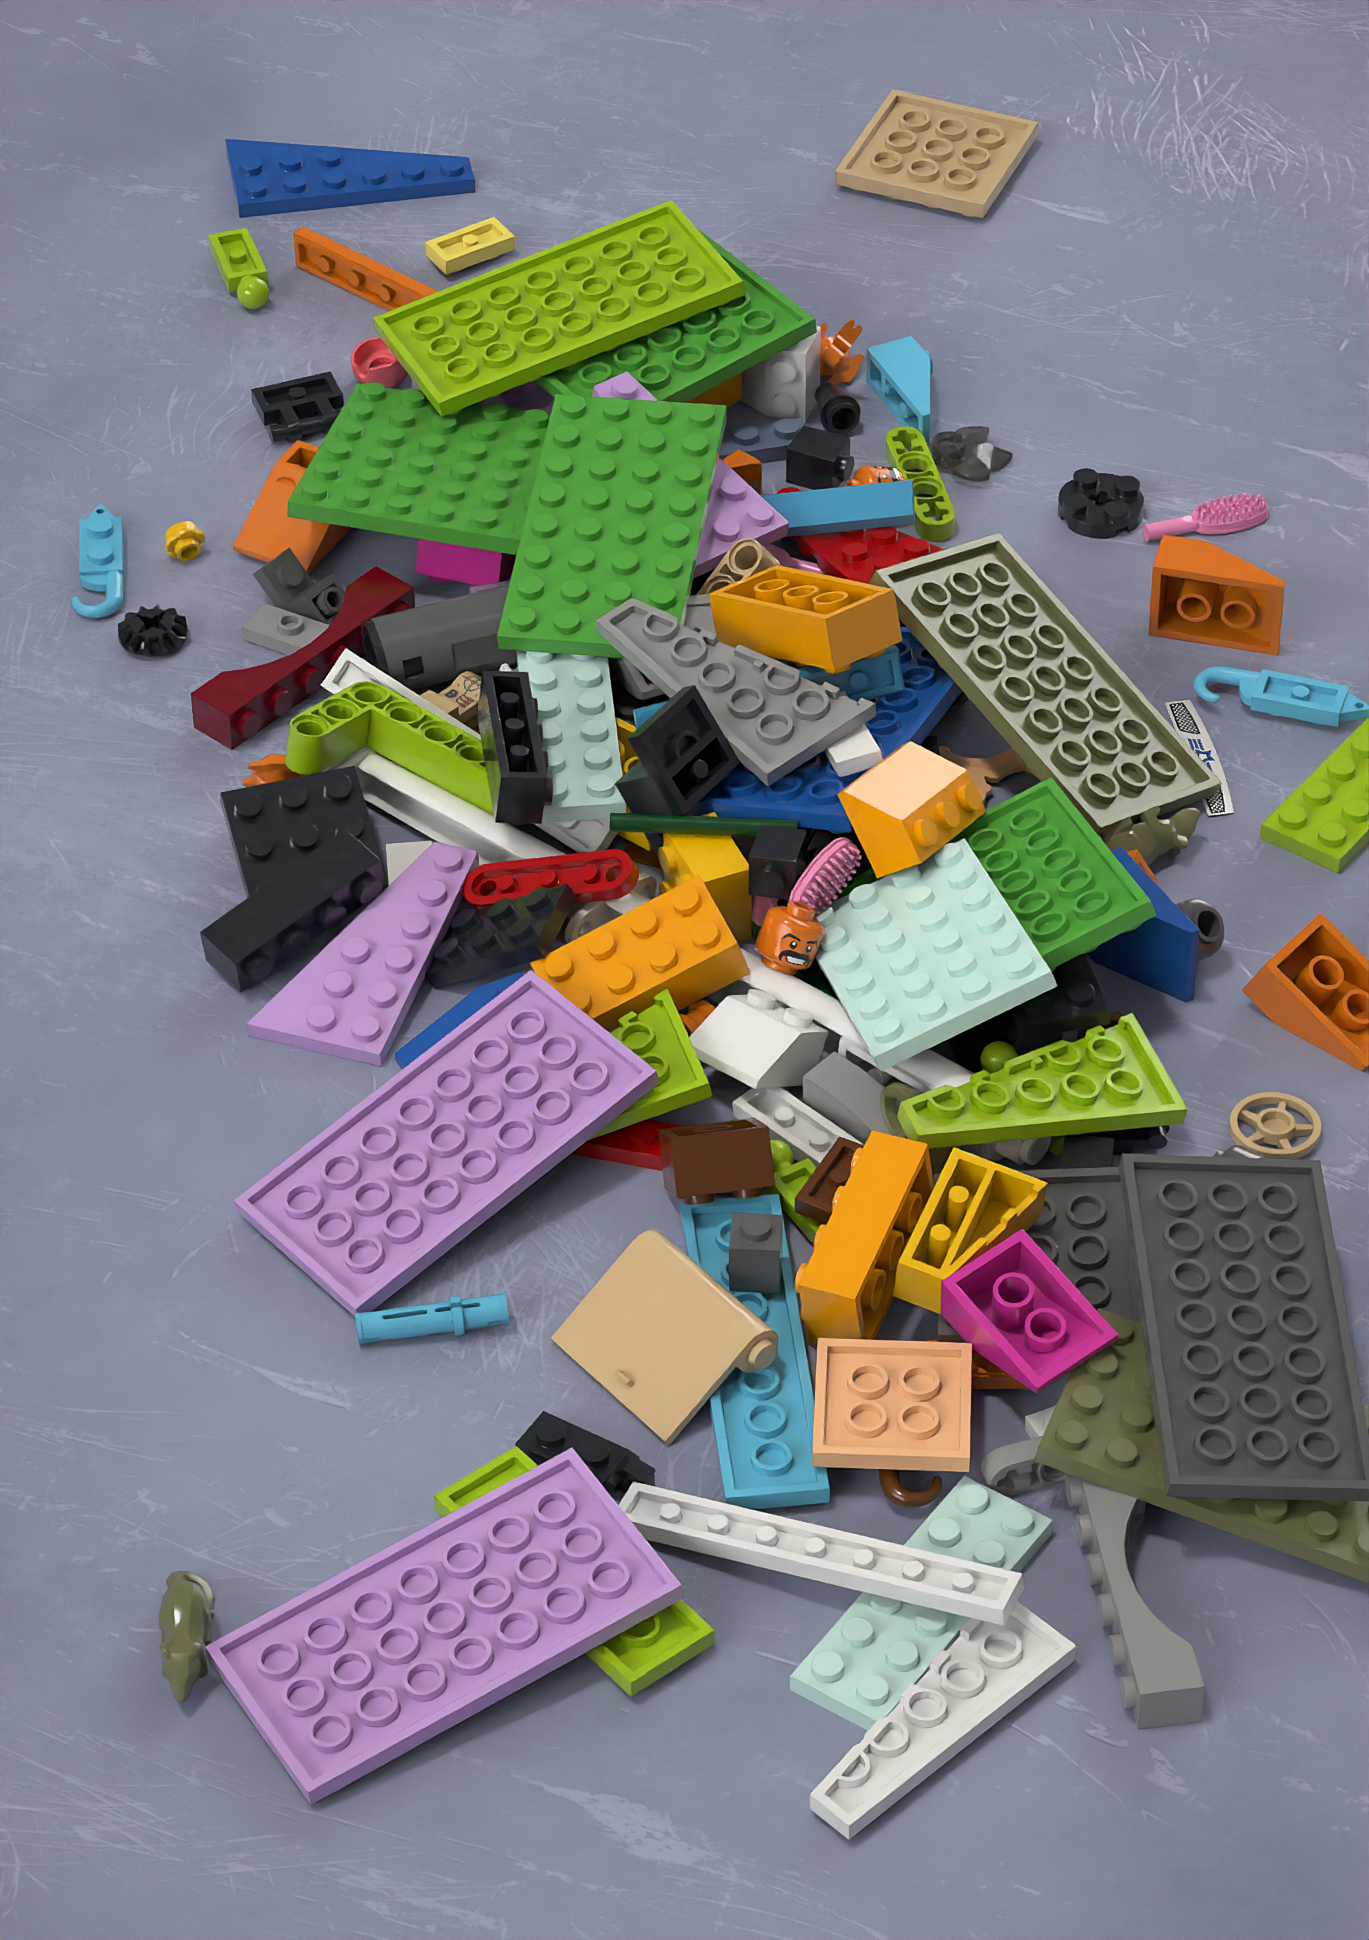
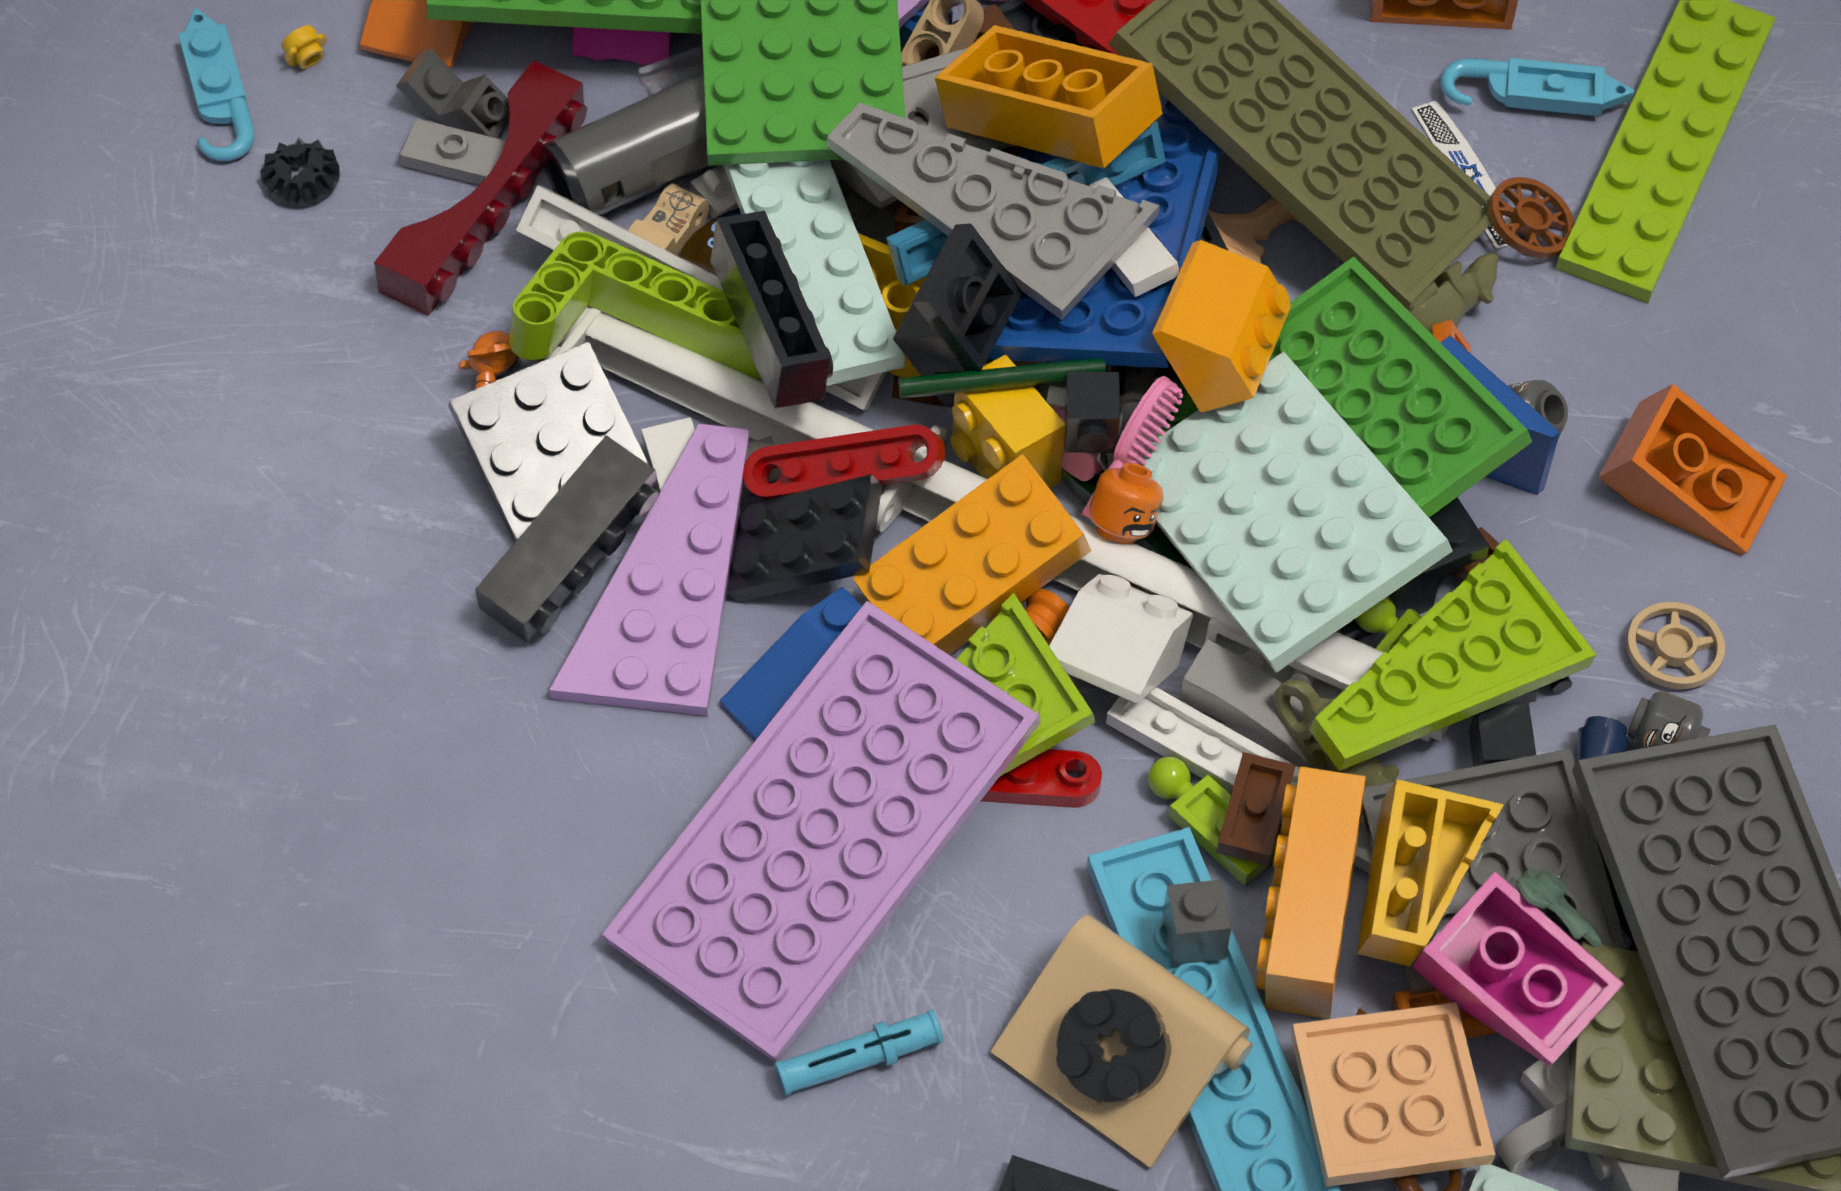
camera: 15 degrees left, 15 degrees up
(630, 1316) = (1142, 1032): none -> black plate
(716, 1159) = (1119, 801): reddish brown brick -> none
(1076, 1267) = (1547, 894): none -> sand green plate
(1242, 790) = (1530, 217): none -> dark orange wheel

